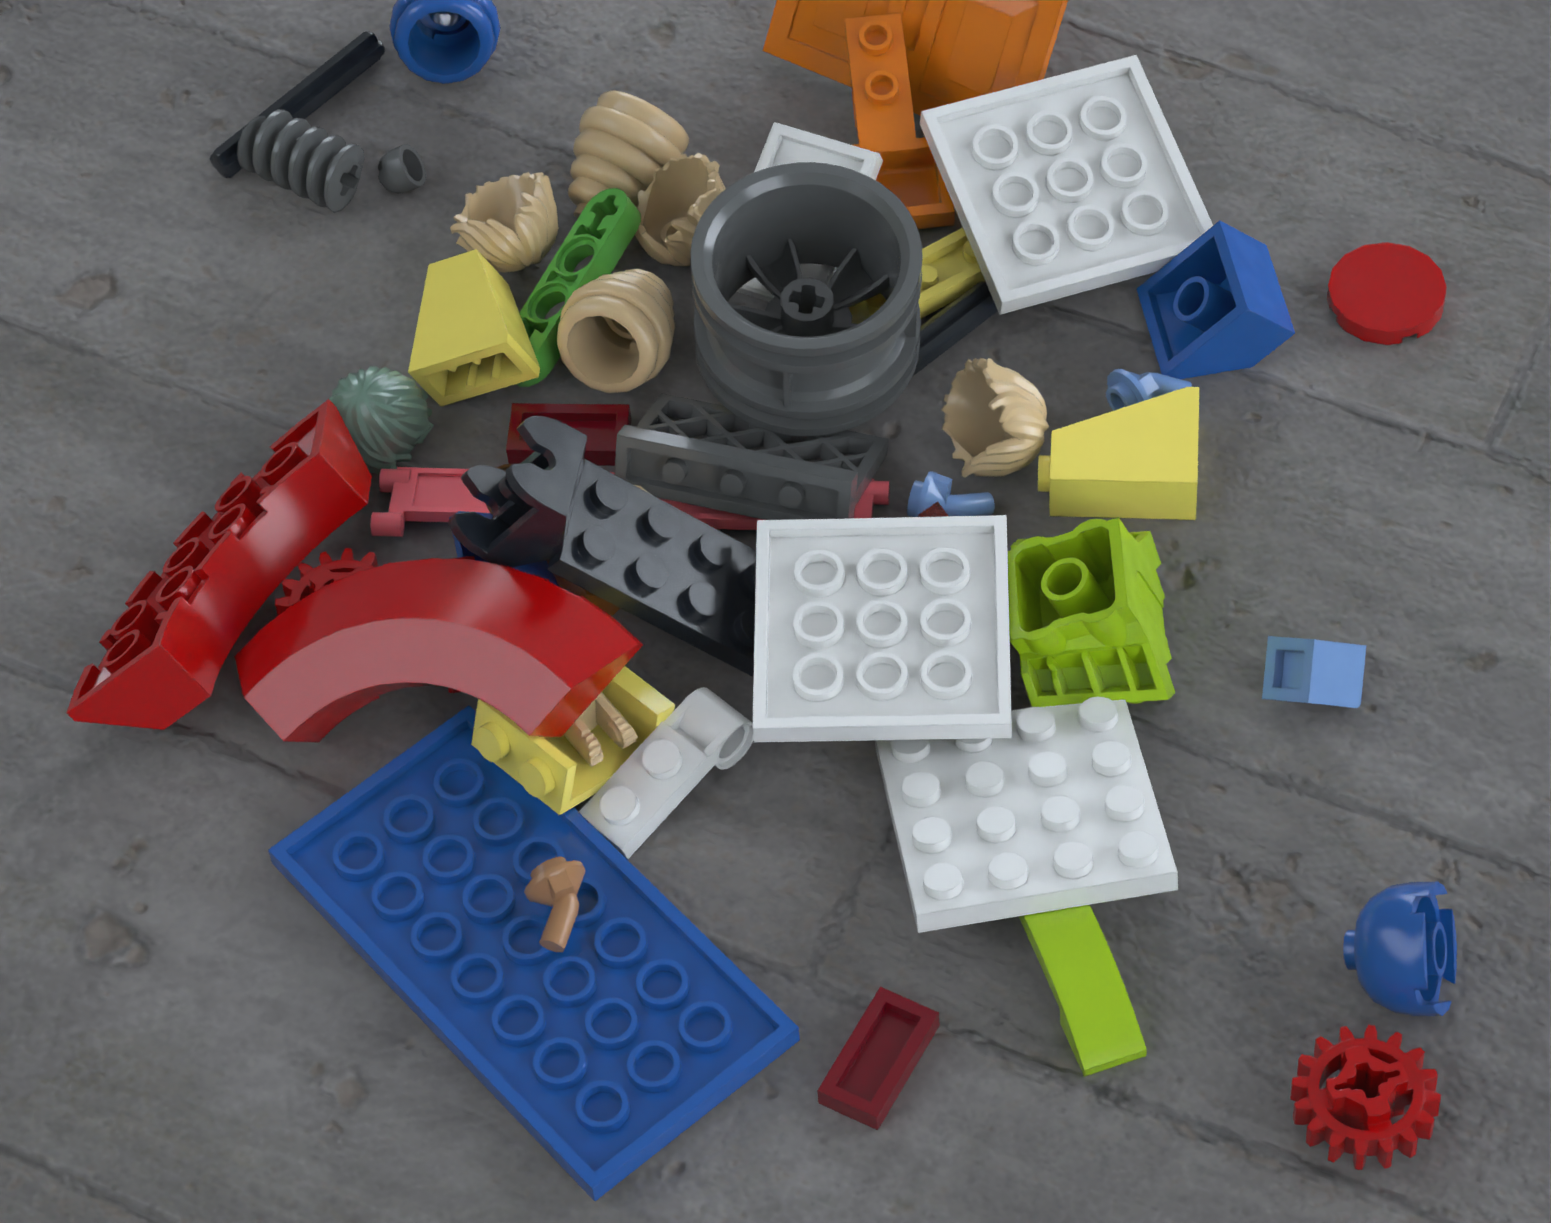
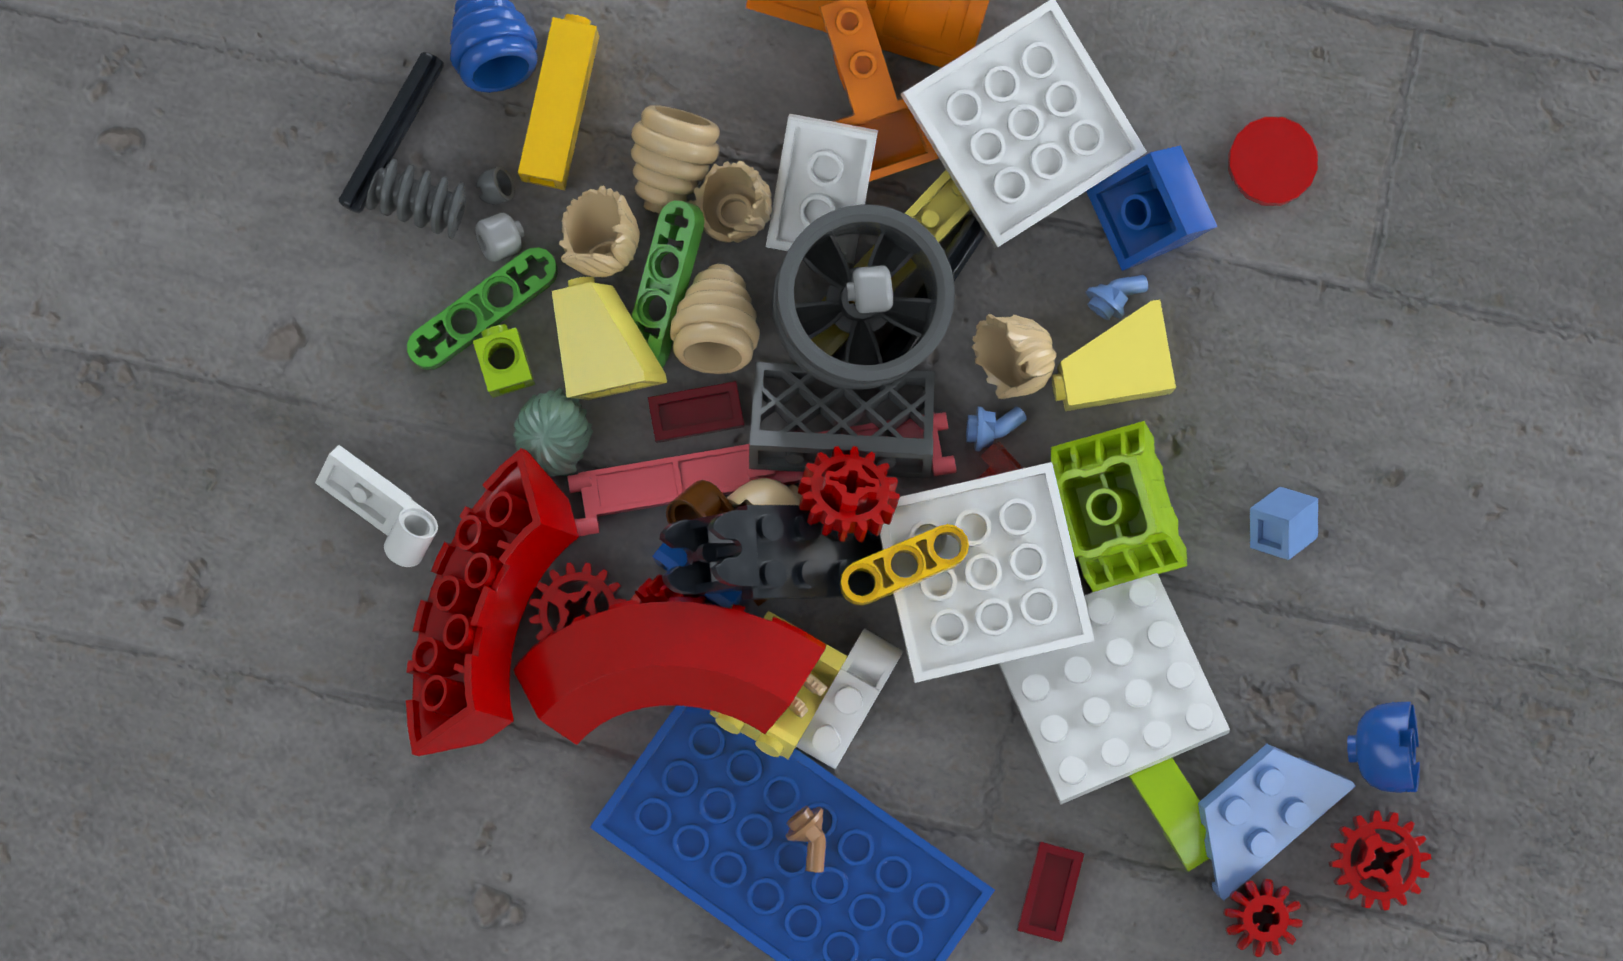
camera: 20 degrees left, 30 degrees up
(134, 453) = (381, 504): none -> white plate
(338, 280) = (477, 302): none -> bright green beam
(344, 334) = (503, 380): none -> lime brick
(388, 219) = (499, 236): none -> light grey piece
(505, 100) = (559, 102): none -> yellow brick
(725, 492) = (848, 493): none -> red gear
(773, 576) = (922, 550): none -> yellow beam
(814, 259) = (871, 289): none -> light grey piece
(1201, 1142) = (1270, 931): none -> red gear
(1207, 1003) = (1263, 811): none -> medium blue wing

